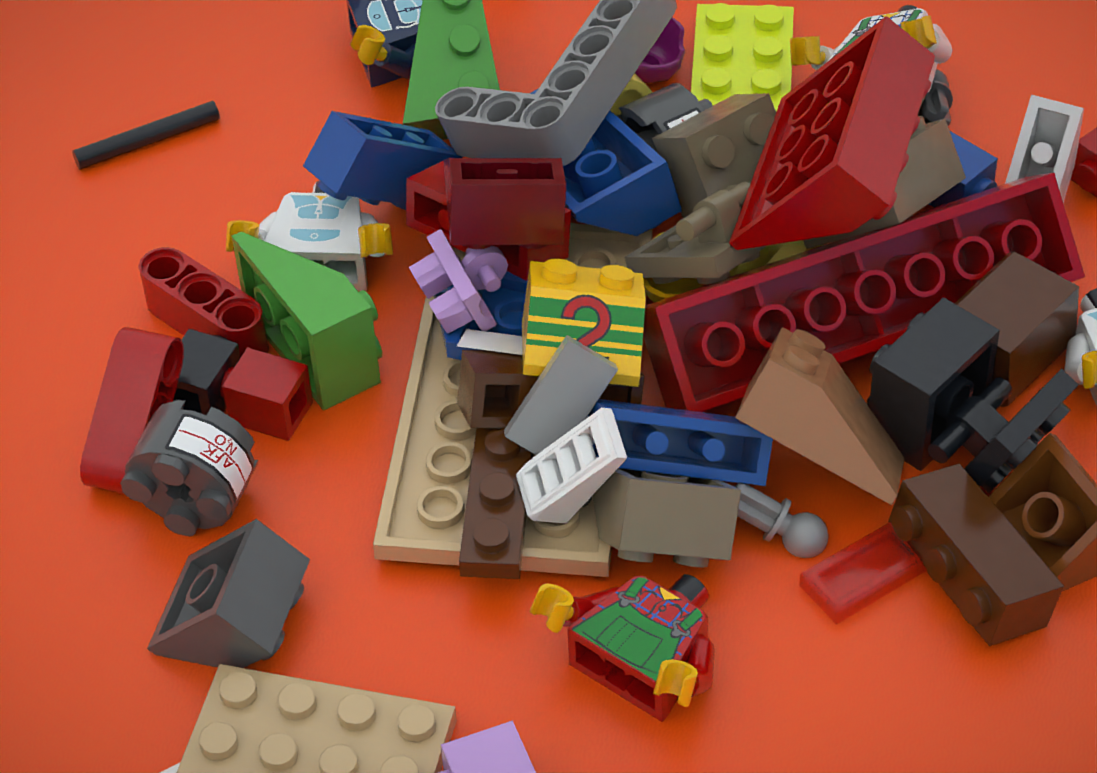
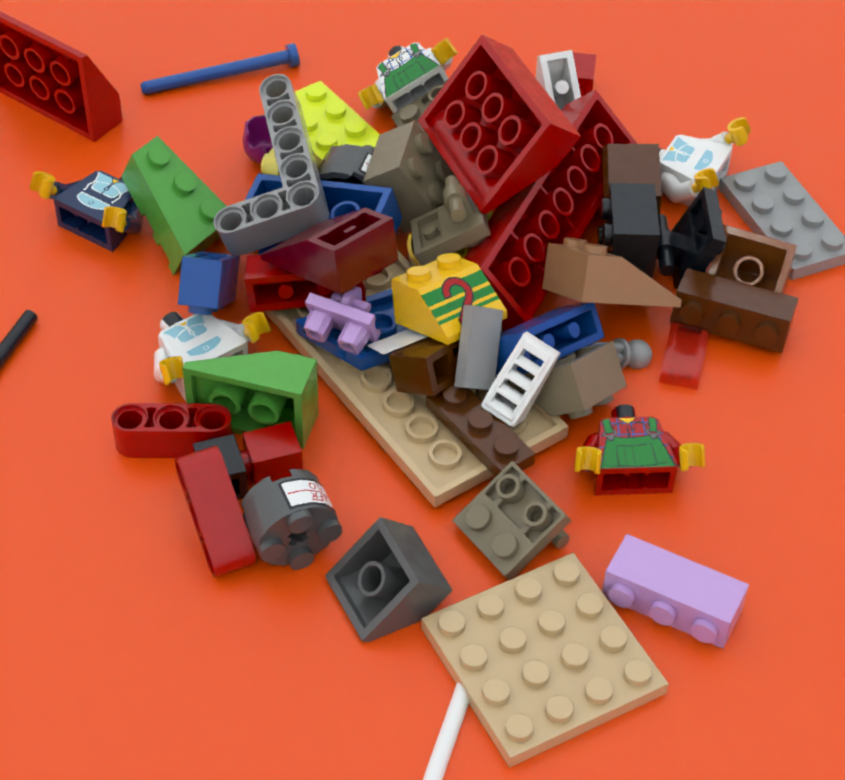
camera: 45 degrees left, 0 degrees up
(425, 626) = (513, 521): none -> dark tan plate

